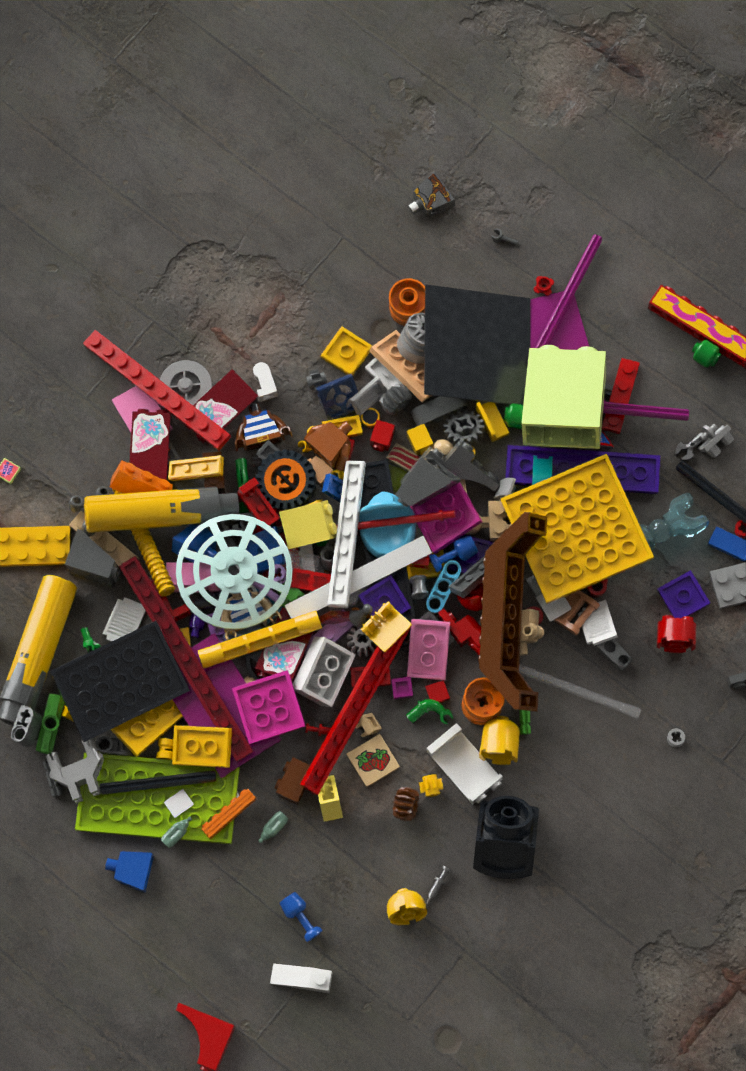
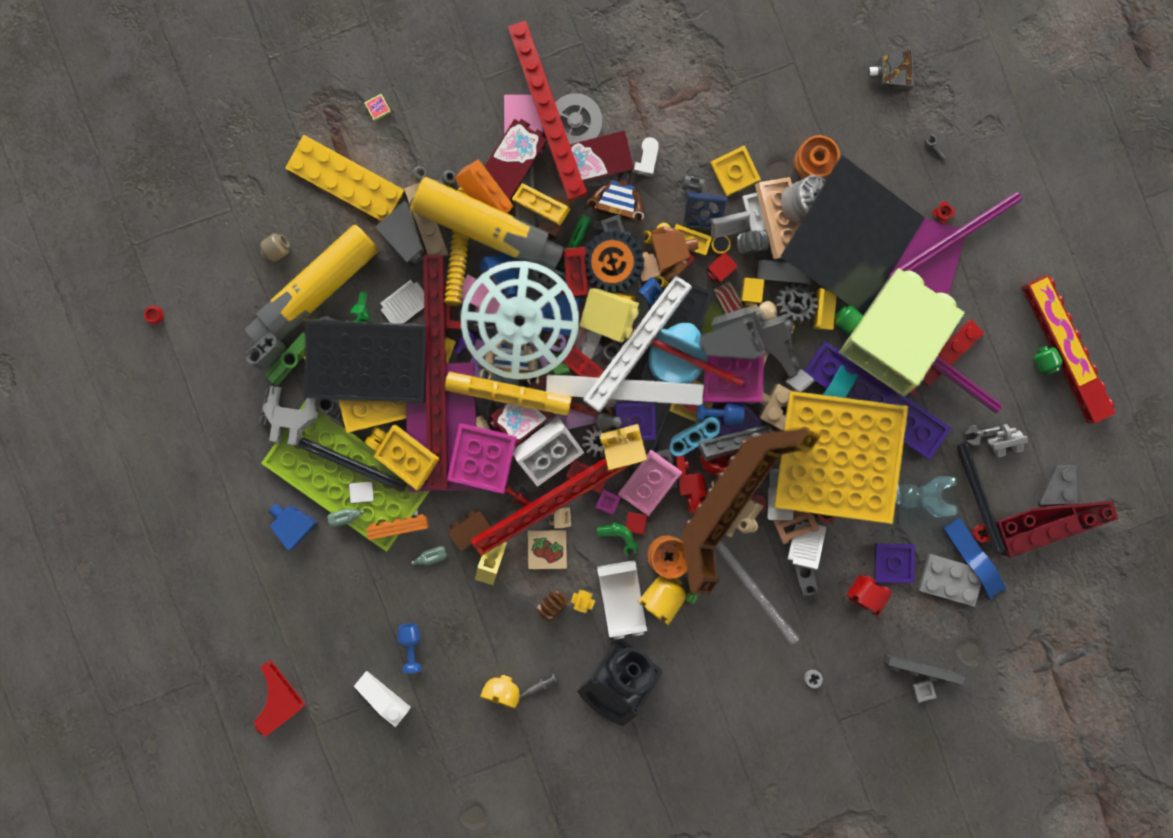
camera: 25 degrees right, 15 degrees up
(419, 587) = (673, 423): light grey bush -> none

